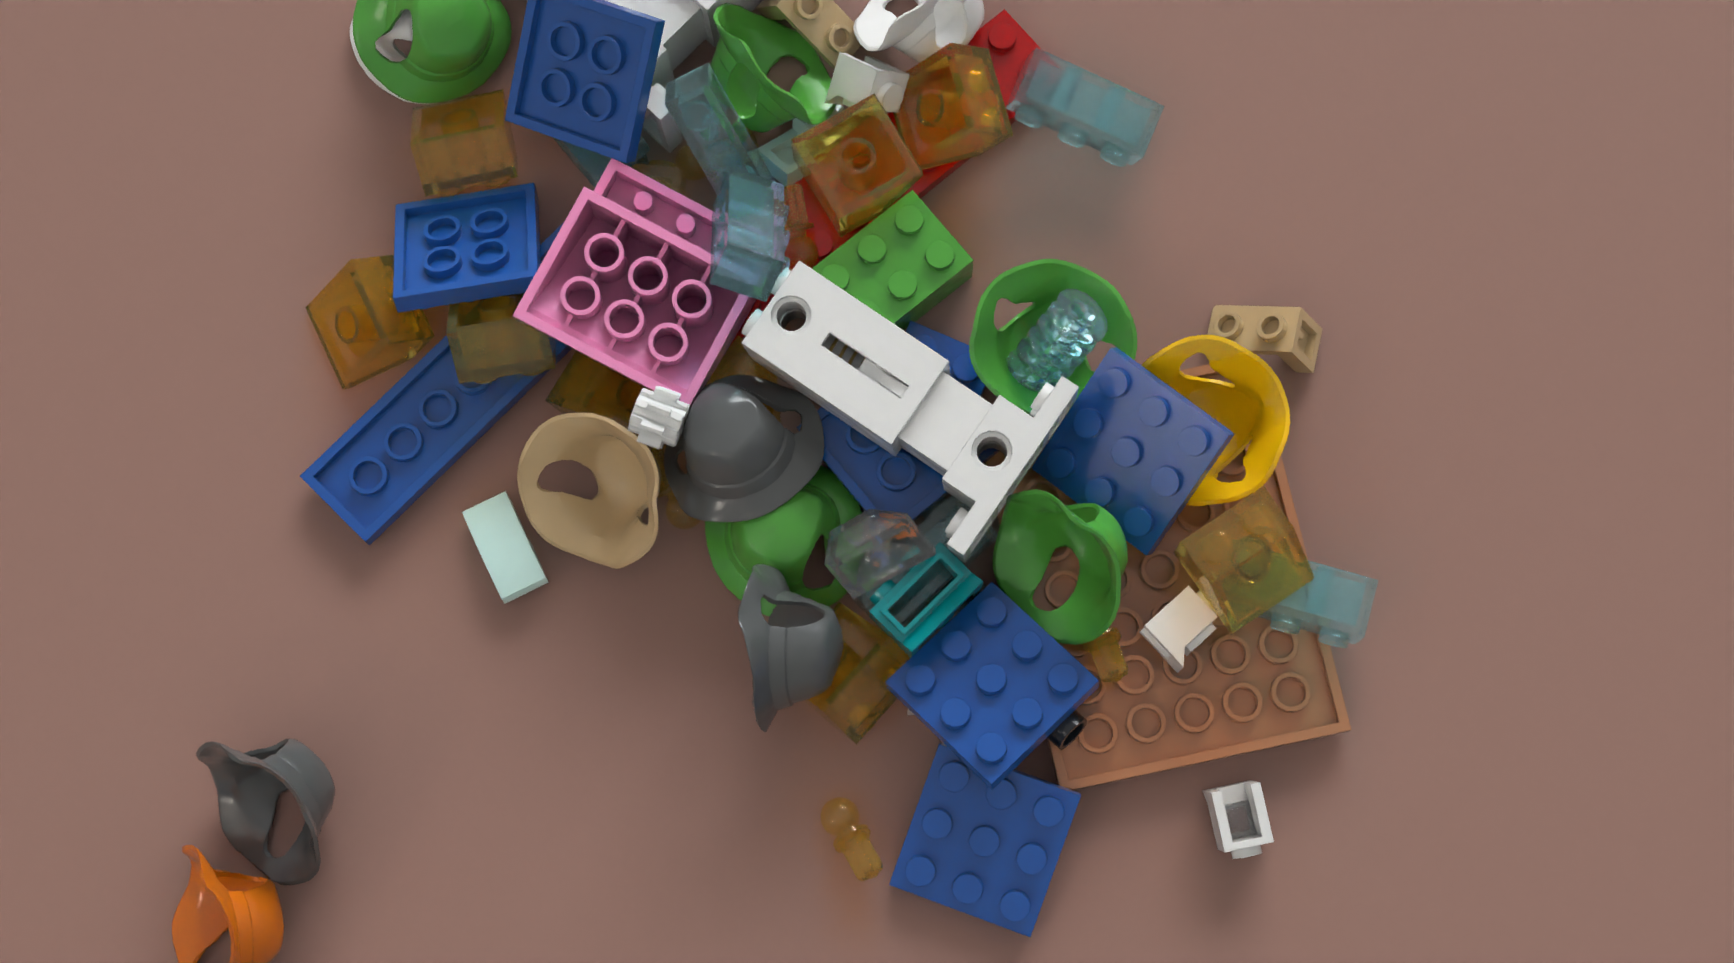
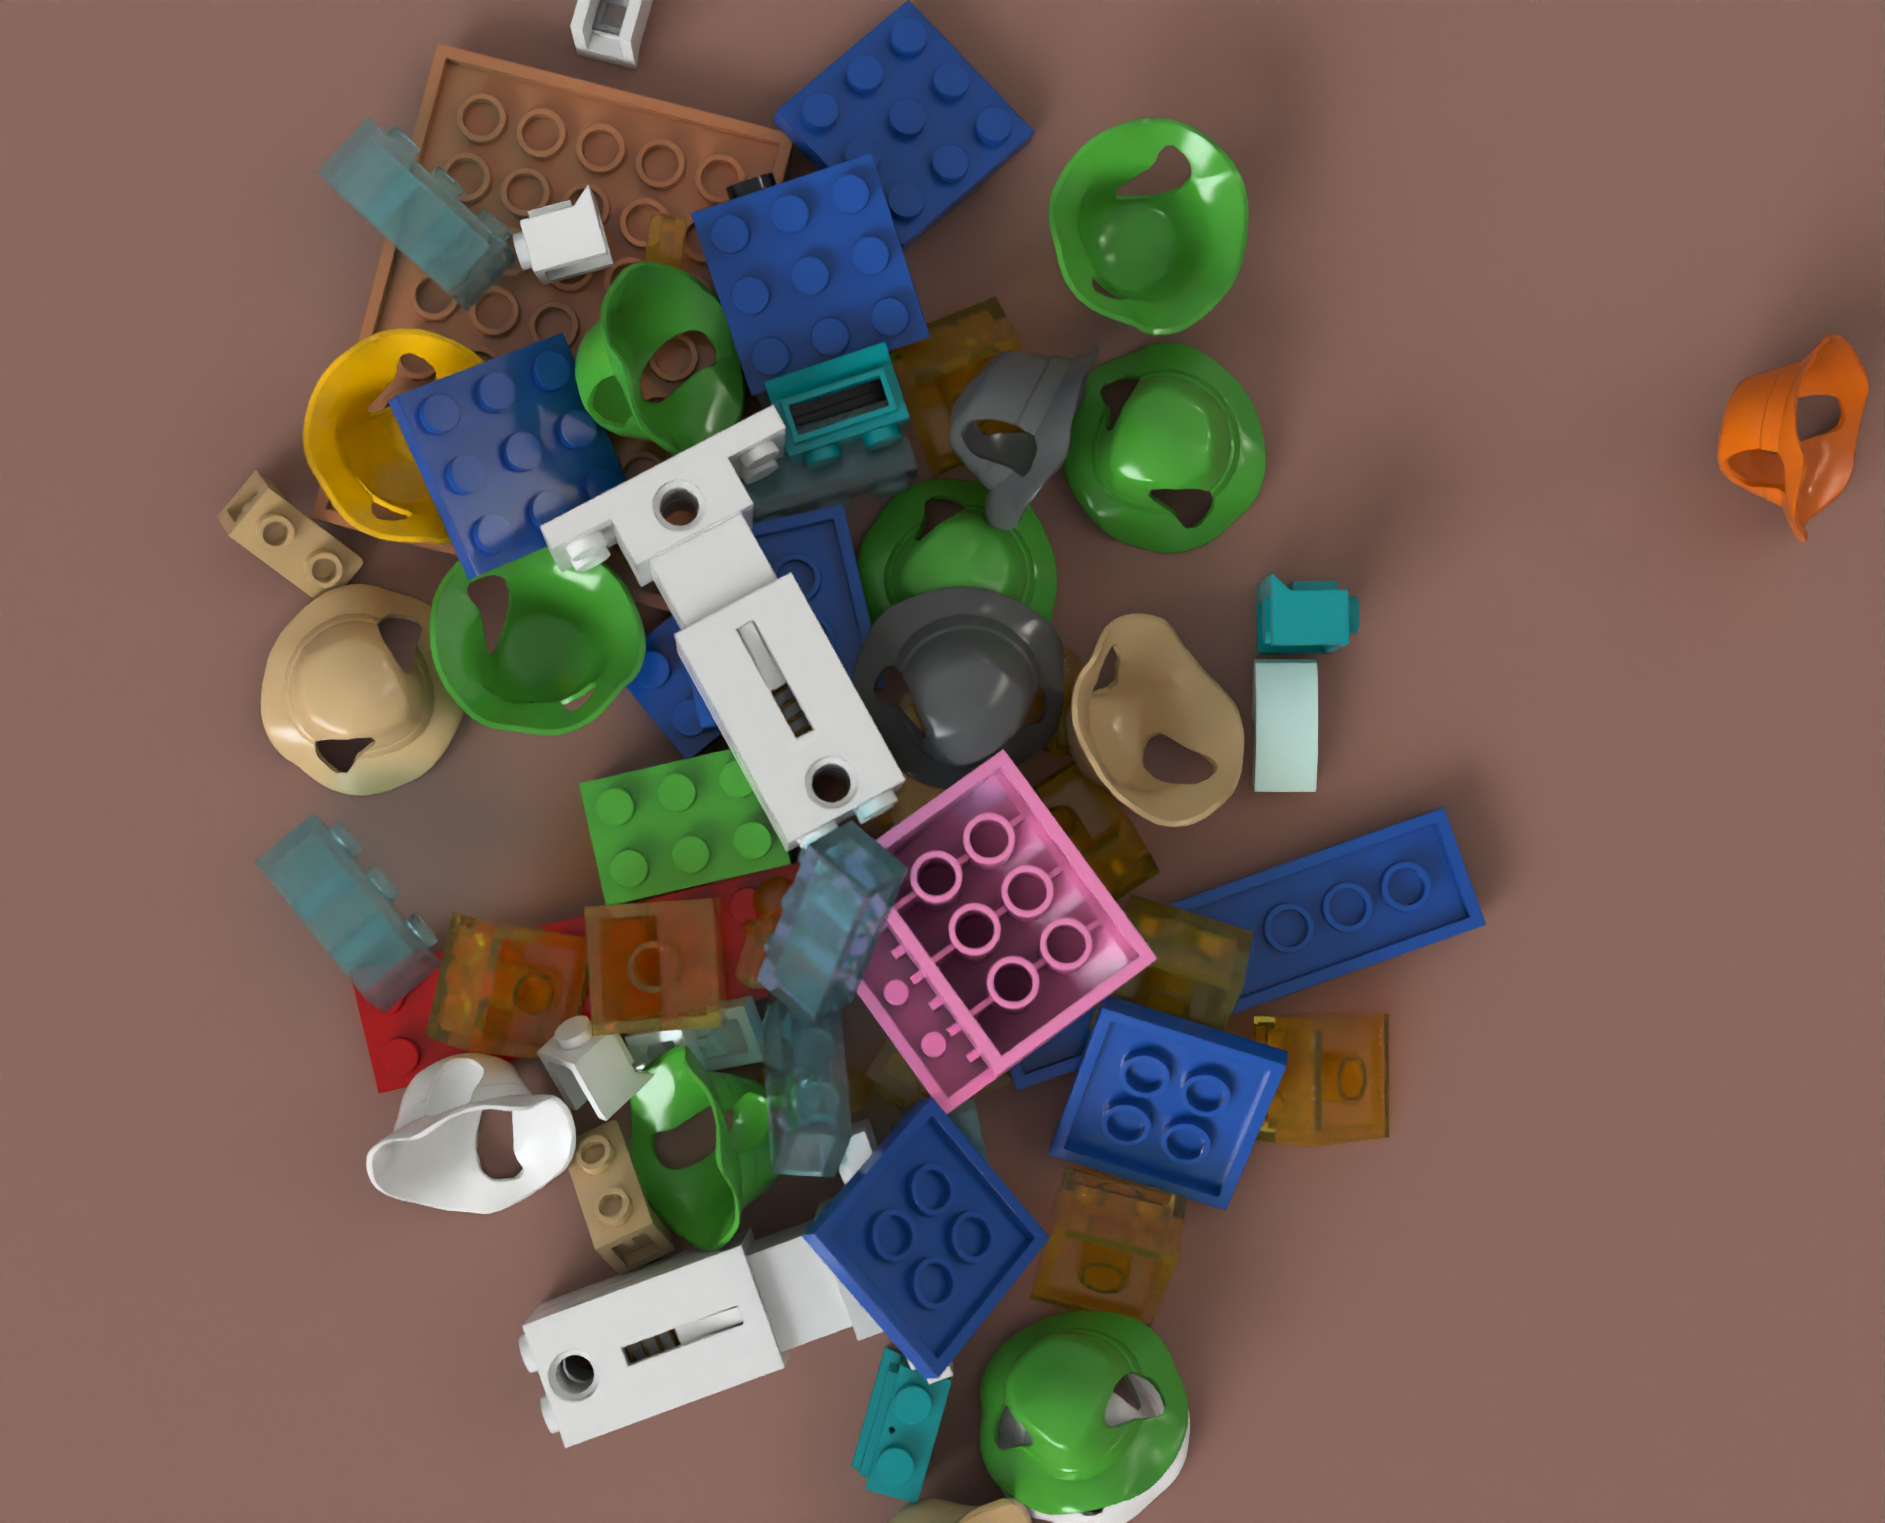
camera: 160 degrees left, 10 degrees up
(248, 797) = (1647, 566): dark grey piece -> none
(522, 618) = (1303, 617): none -> teal window
(658, 417) = (1042, 751): white gear -> none
(672, 707) = (1178, 430): none -> bright green piece
(754, 837) = (1158, 252): none -> bright green piece
(841, 819) = (1046, 167): clear yellow axle -> none
(875, 549) = (869, 485): clear slope -> none
(1058, 340) = (532, 628): clear light blue piece -> none
(1171, 245) = (342, 683): none -> tan piece
(1246, 560) = (454, 261): clear yellow slope -> none

